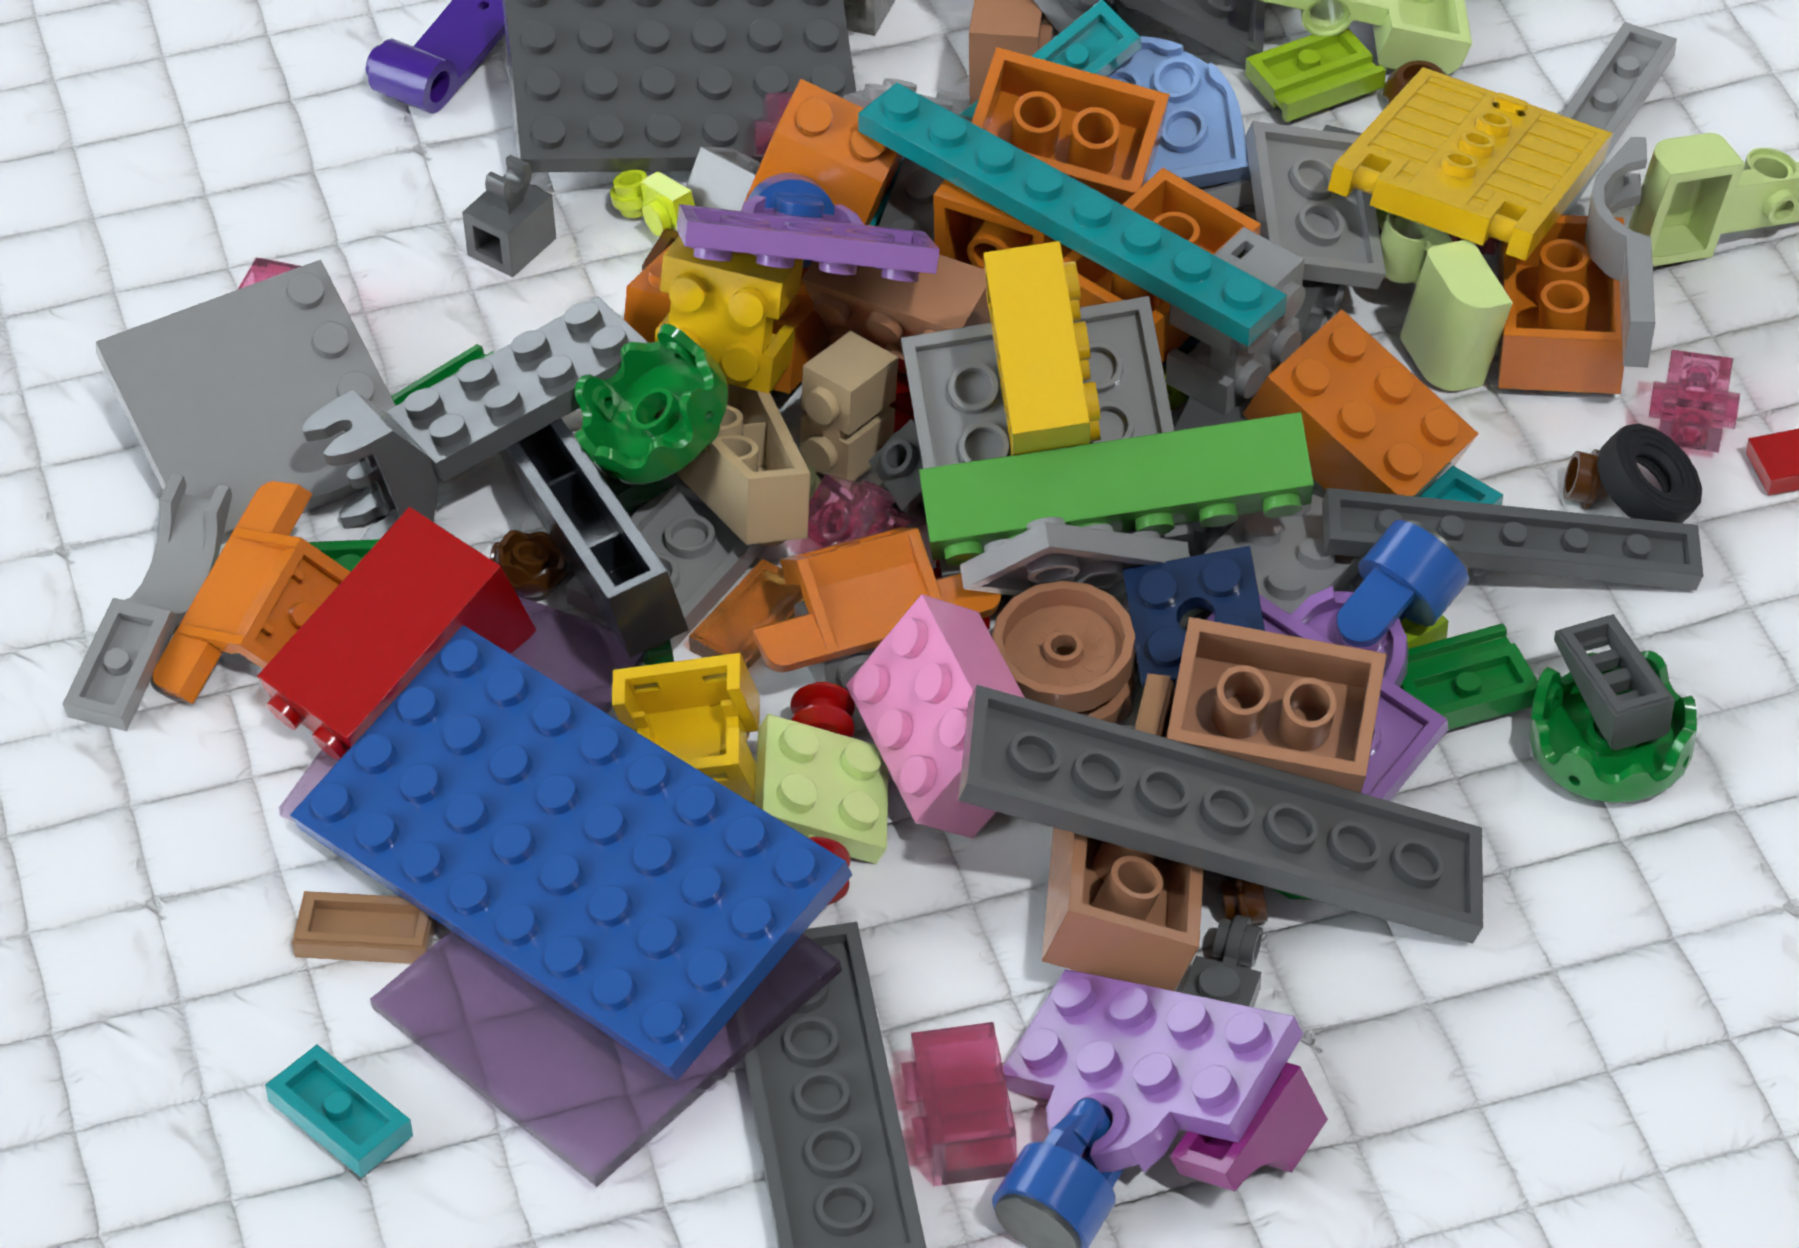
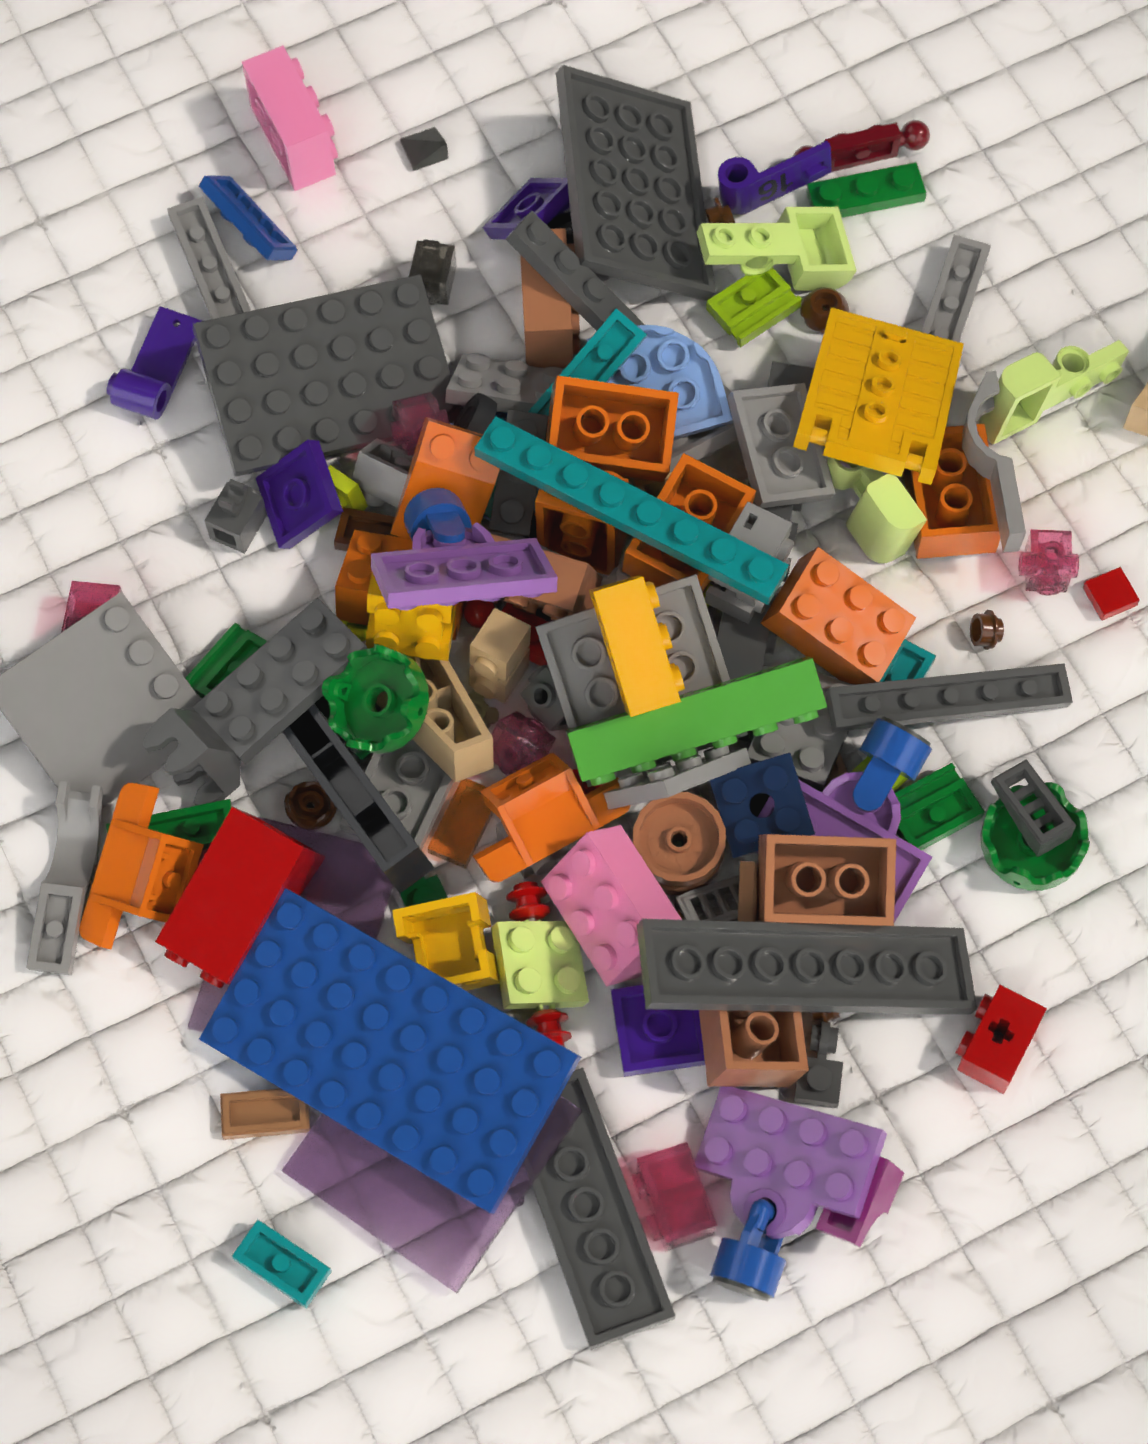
camera: 10 degrees left, 20 degrees up
(605, 200) = (299, 494): none -> dark purple plate
(983, 892) = (654, 1037): none -> dark purple plate
(1513, 971) = (995, 1062): none -> red brick
(1664, 460) = (1013, 637): black tyre -> none

